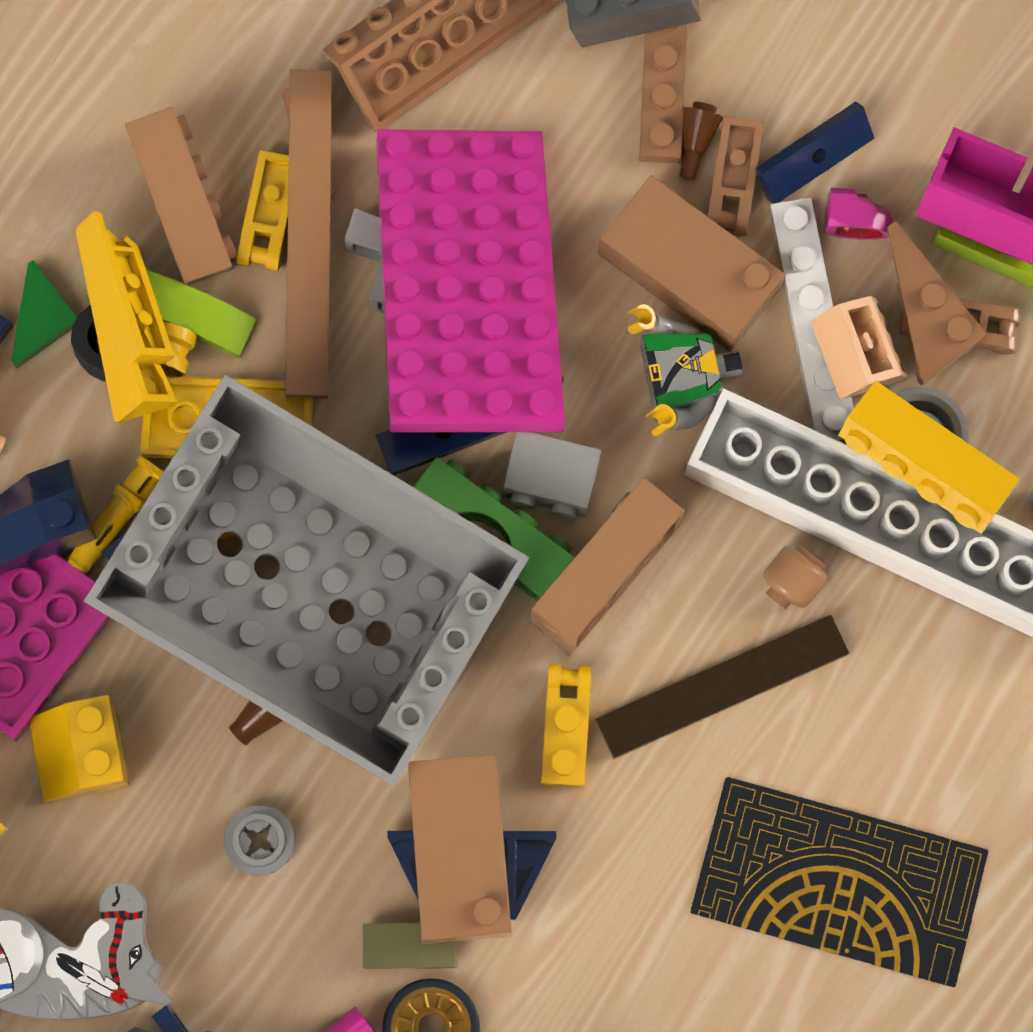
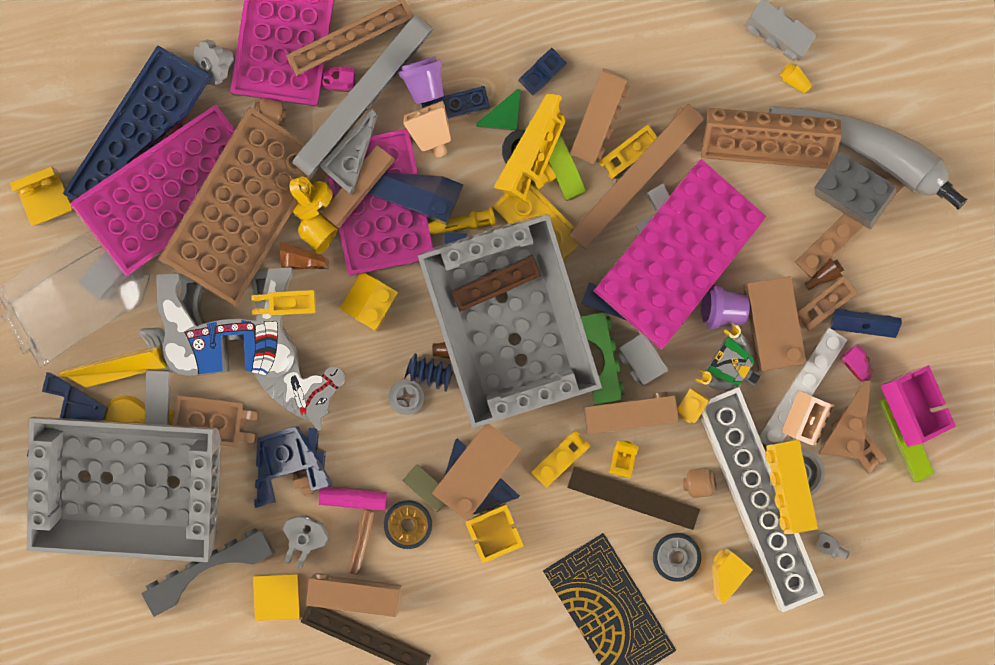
camera: 40 degrees right, 10 degrees up
(44, 210) = (542, 71): none -> dark blue slope
(240, 551) = (496, 283): none -> reddish brown tile
(260, 772) = (429, 372): none -> dark blue piece
(568, 918) = (494, 533): none -> yellow piece
(596, 302) = (723, 306): none -> medium lavender piece
(655, 641) = (623, 458): none -> yellow bracket
(683, 472) = (692, 406): none -> yellow bracket
(850, 738) = (682, 570): none -> light grey wheel
(957, 666) = (728, 574): none -> yellow slope

